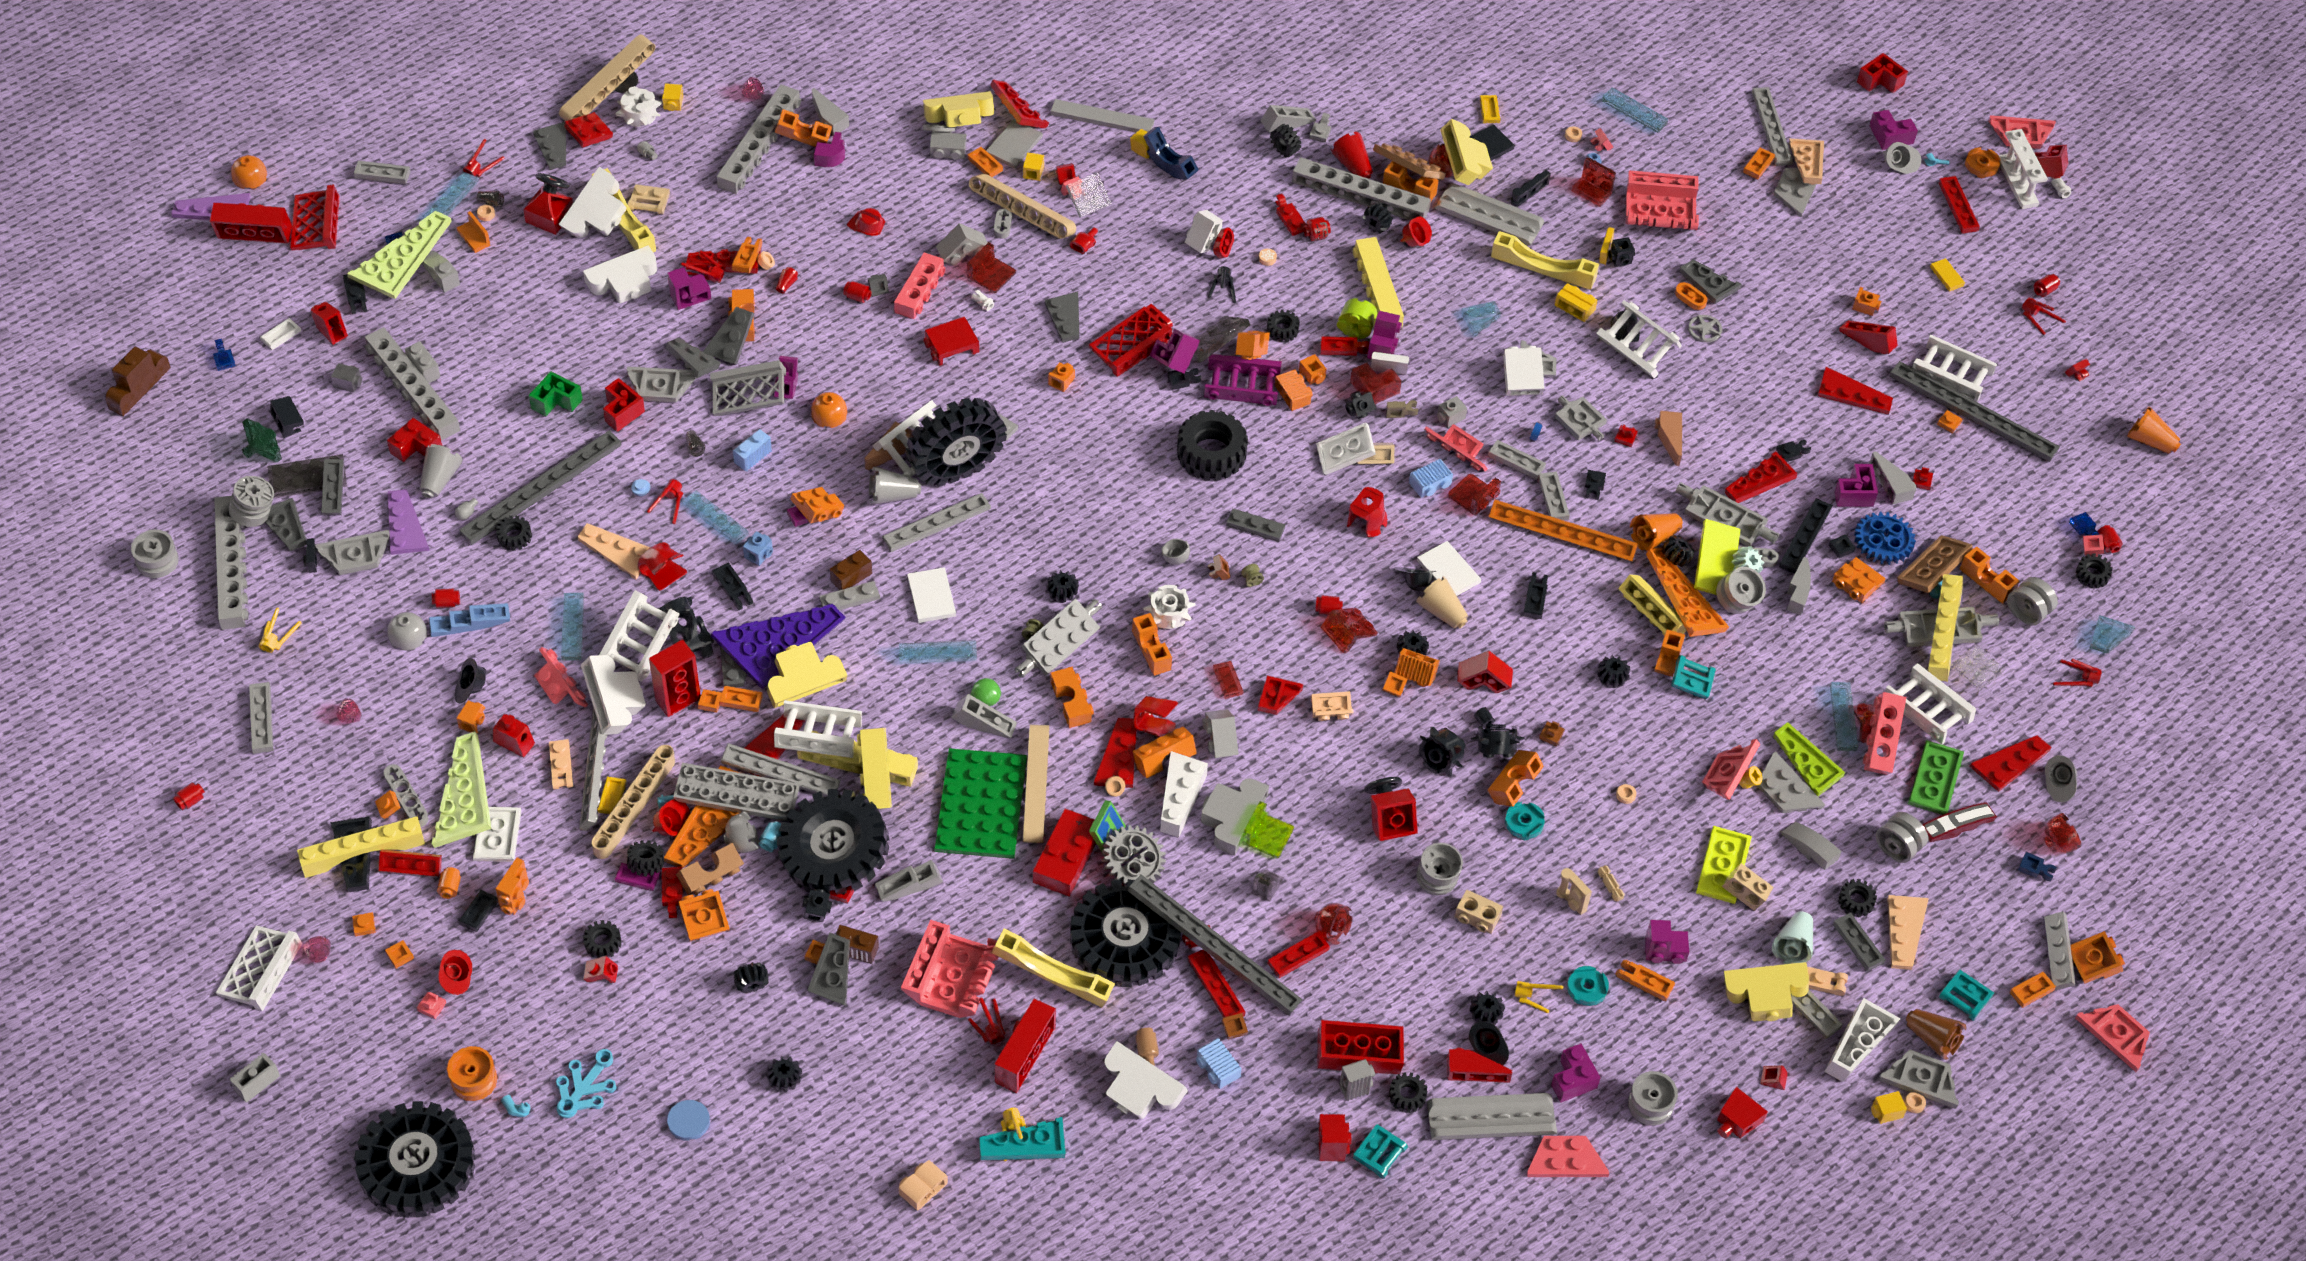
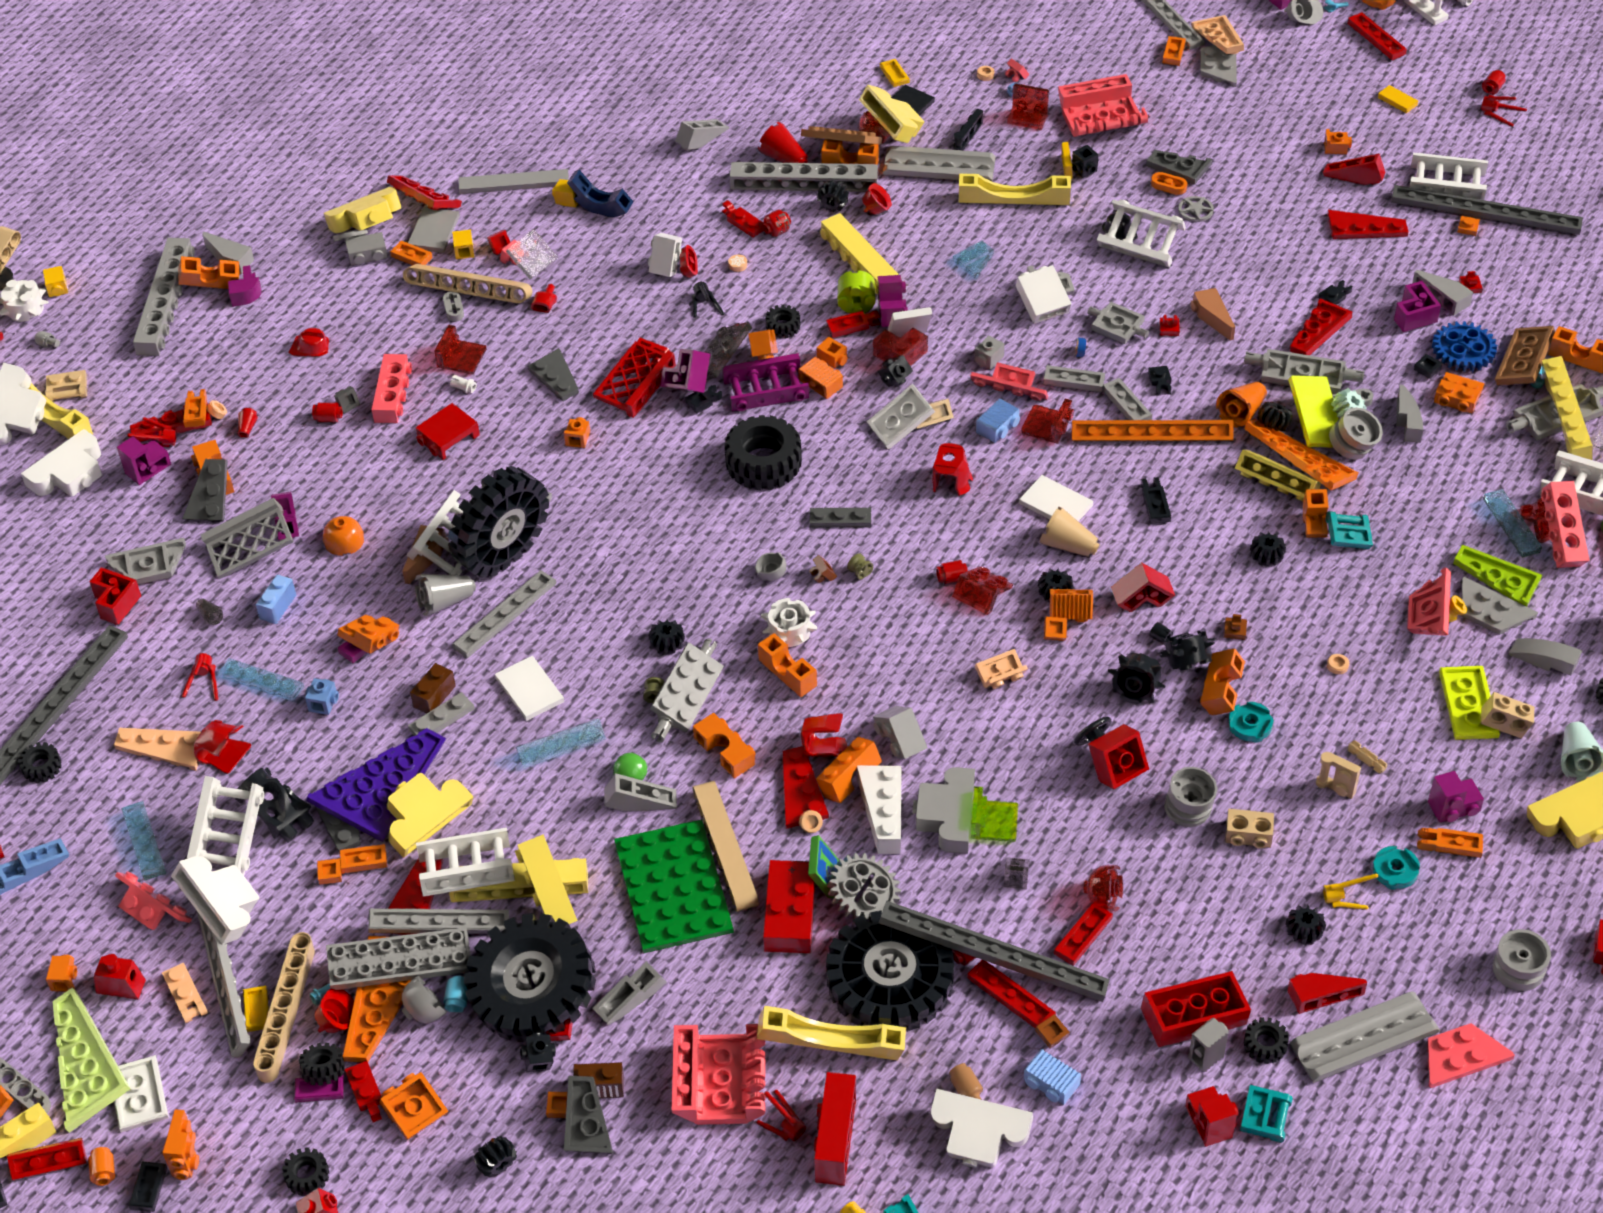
camera: 15 degrees left, 5 degrees down
(470, 680) = (46, 934): black piece -> none
(555, 391) = (35, 602): green brick -> none
(640, 487) = (166, 673): light blue plate -> none
(675, 678) = (284, 856): red brick -> none
(692, 357) = (174, 525): dark grey wing -> none
(695, 878) = (388, 1067): medium nougat arch -> none
(732, 585) = (307, 743): black hinge -> none
(752, 89) = (138, 251): clear pink cone -> none
(959, 243) = (418, 335): light grey brick -> none
(1228, 679) = (880, 677): clear red tile -> none
(1278, 694) = (939, 675): red wing -> none
(1285, 140) = (701, 152): black tyre -> none
(1321, 131) = (738, 135): light grey plate -> none
(1400, 409) = (935, 365): dark tan plate -> none
(1415, 578) = (1029, 520): black piece -> none
(1489, 1042) = (1326, 957): black piece -> none
(1576, 302) = (1062, 219): yellow brick -> none
(1579, 1074) = (1433, 961): magenta brick -> none
(1635, 110) = (1034, 36): clear light blue plate -> none
(1806, 535) = (1388, 367): black plate -> none
(2079, 370) = (1563, 147): red tile -> none

